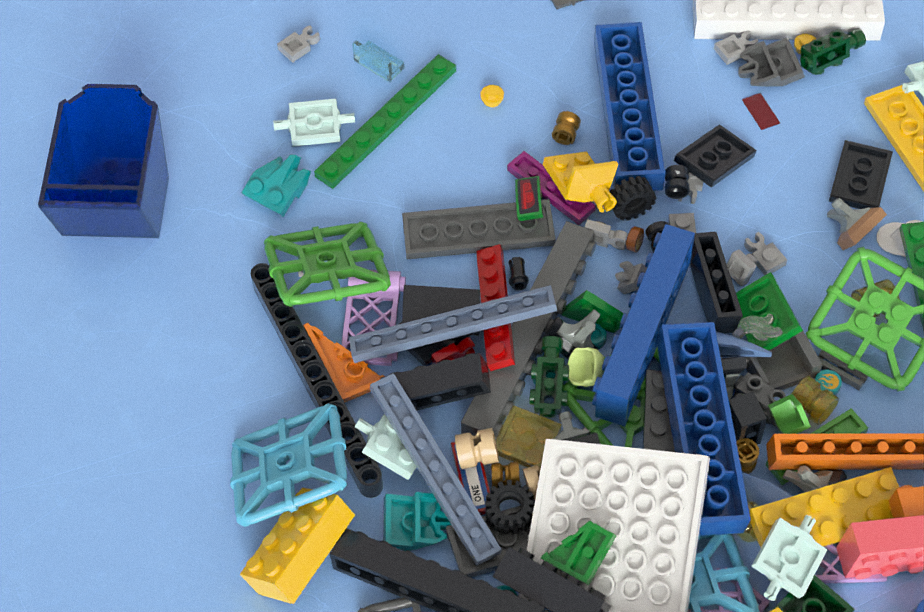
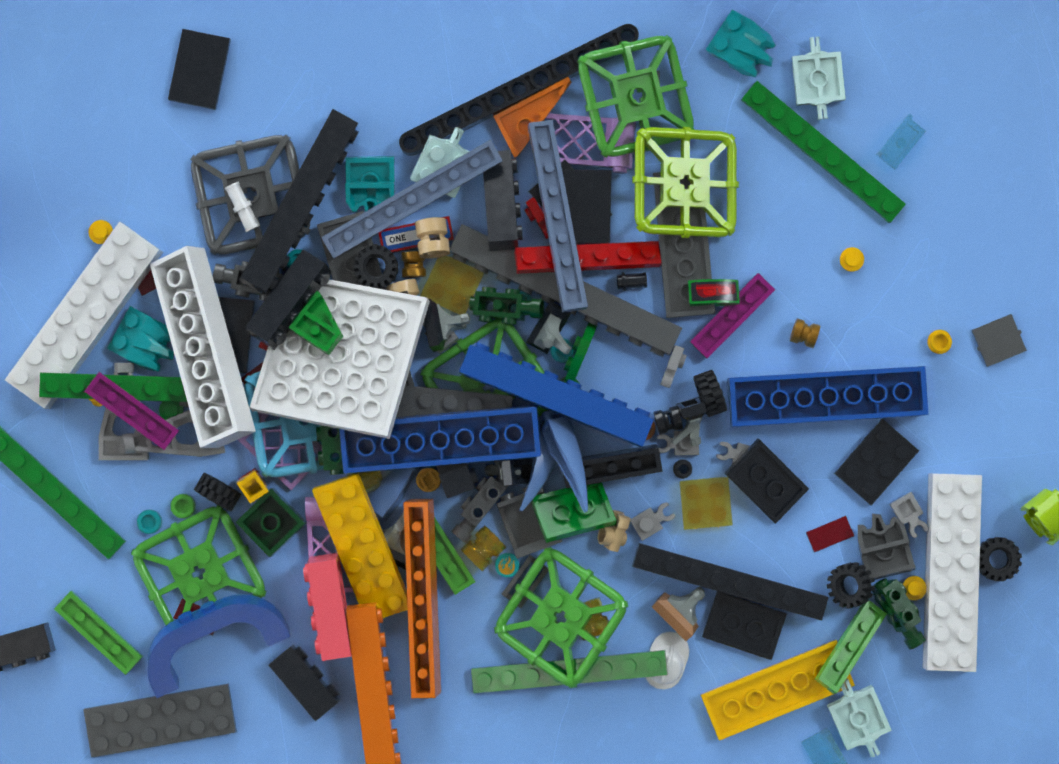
camera: 90 degrees right, 30 degrees up
(277, 474) = (409, 80): medium azure plate -> none
(297, 548) = (342, 81): yellow brick -> none
(298, 45) = (920, 55): light grey plate -> none
(427, 212) = (697, 171): none -> lime plate
(569, 28) = (939, 341): none -> yellow plate
(582, 179) = (735, 345): yellow plate -> none
(585, 366) = (515, 339): yellowish green hair -> none
(629, 278) = (622, 389): light grey tile -> none
(635, 239) = (668, 395): dark orange tile -> none
(654, 209) = (692, 411): none -> piece
(676, 179) = (735, 439): black wheel -> none
(688, 75) = (876, 462): none -> black plate
(710, 222) = (676, 469): none -> black pin
(717, 305) = (564, 448): none -> medium blue piece
(721, 543) = (329, 446): none -> dark green brick
(741, 266) = (633, 496): light grey tile -> none
(742, 206) = (705, 503): none -> clear yellow plate
(758, 326) = (555, 501): clear piece -> none
(787, 281) = (614, 536): none -> tan plate
(789, 415) = (453, 521): bright green panel -> none
(789, 557) = (309, 504): light aqua plate -> none
(819, 185) = (730, 581): none -> black brick
(823, 78) = (862, 578): none -> black tyre
(871, 83) = (850, 647): none -> bright green plate

